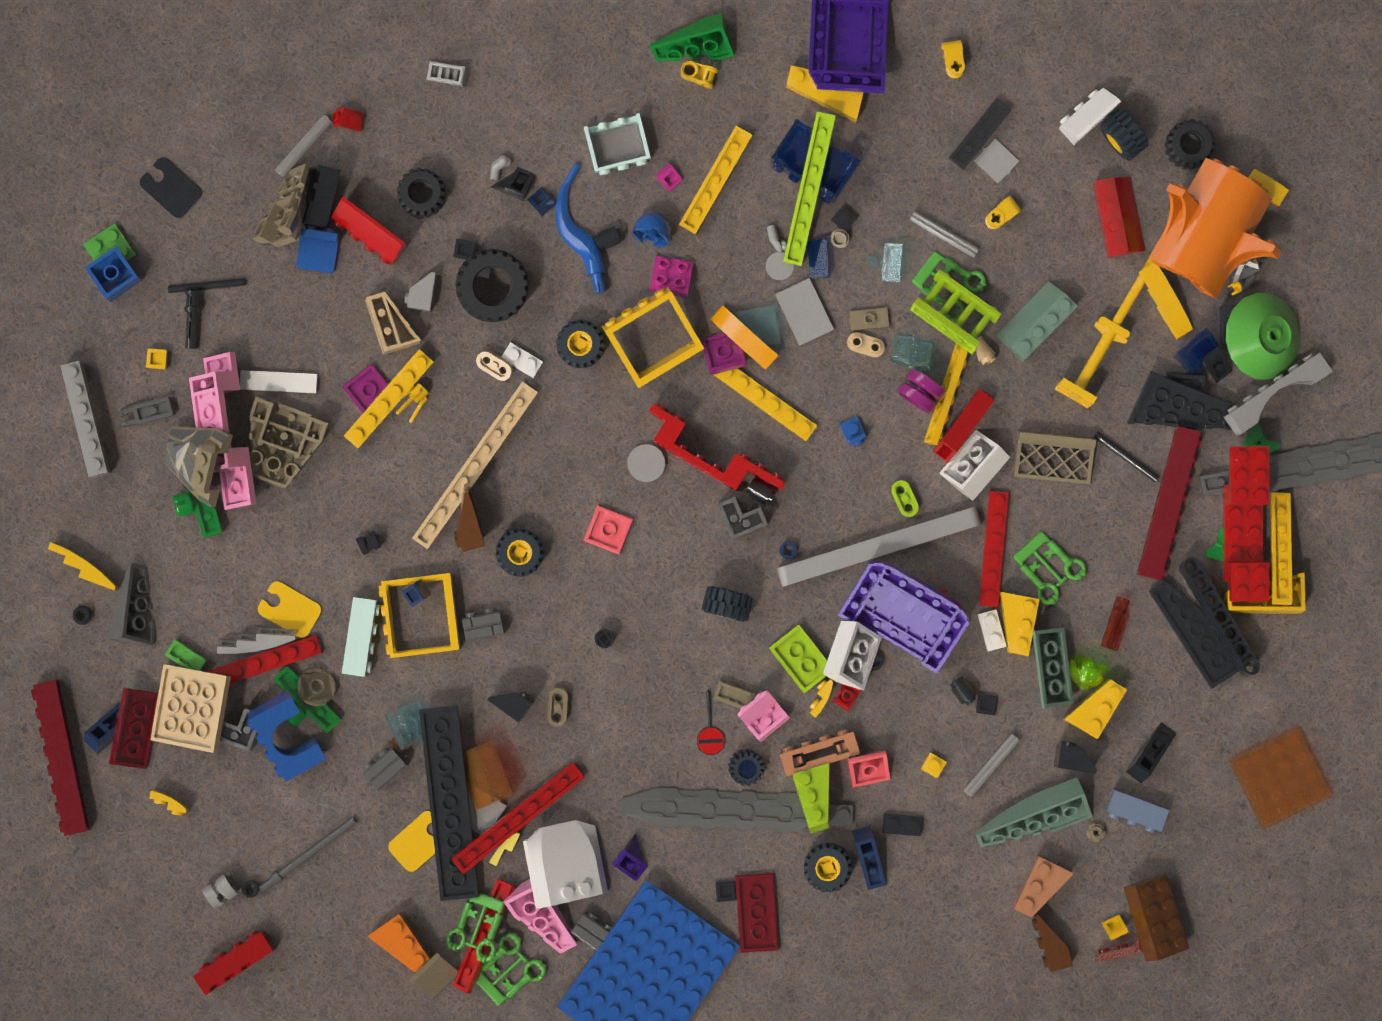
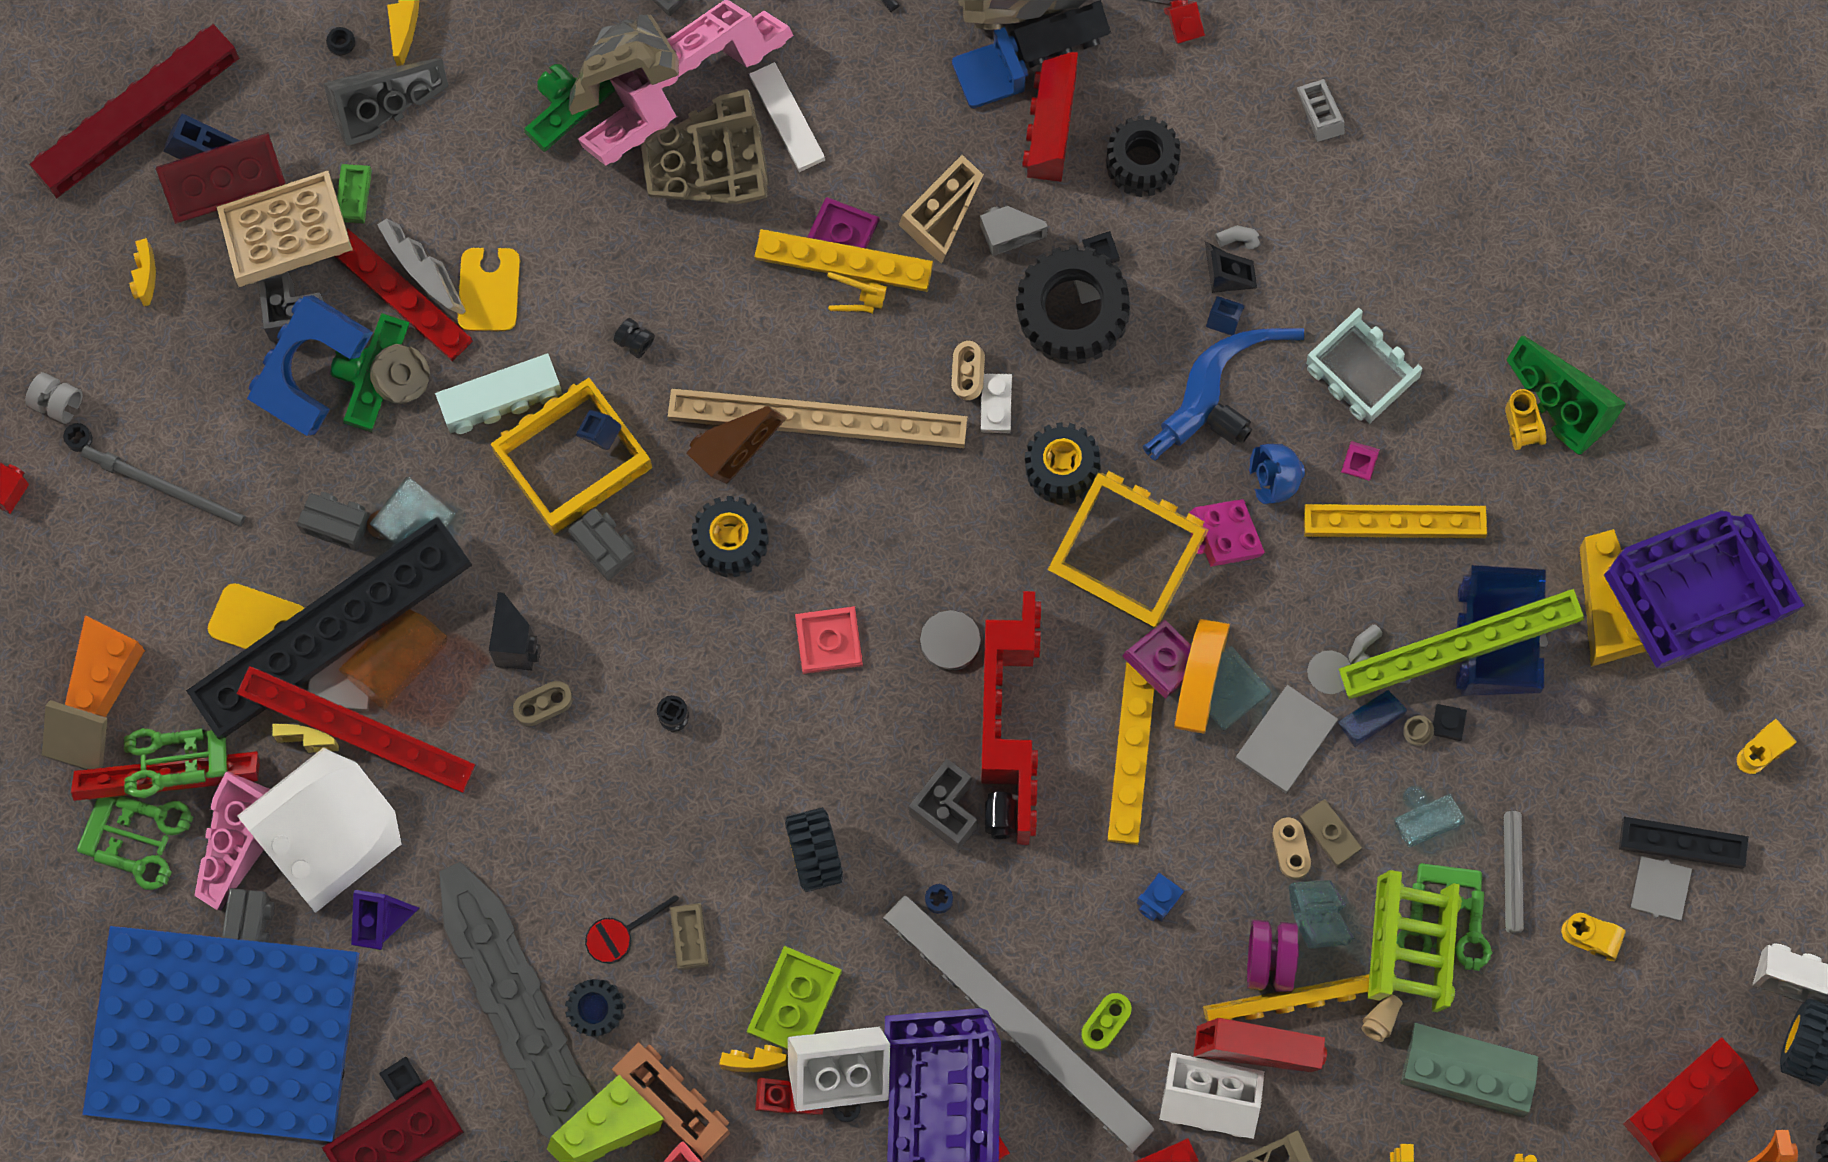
camera: 65 degrees right, 15 degrees down
(763, 715) = (683, 988): bright pink bracket -> none

